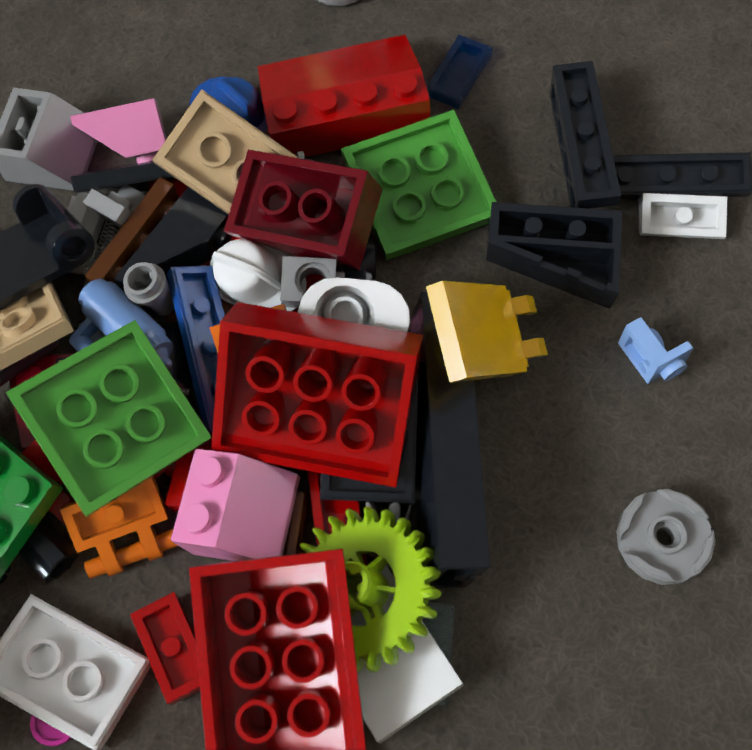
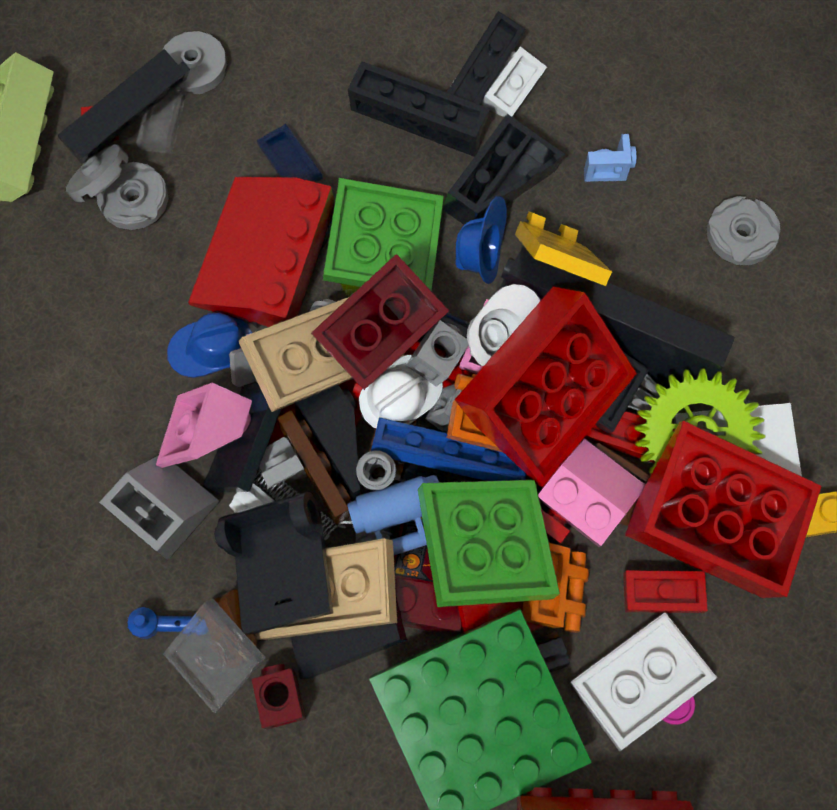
camera: 65 degrees left, 5 degrees up
(477, 263) = (481, 240): none -> blue piece

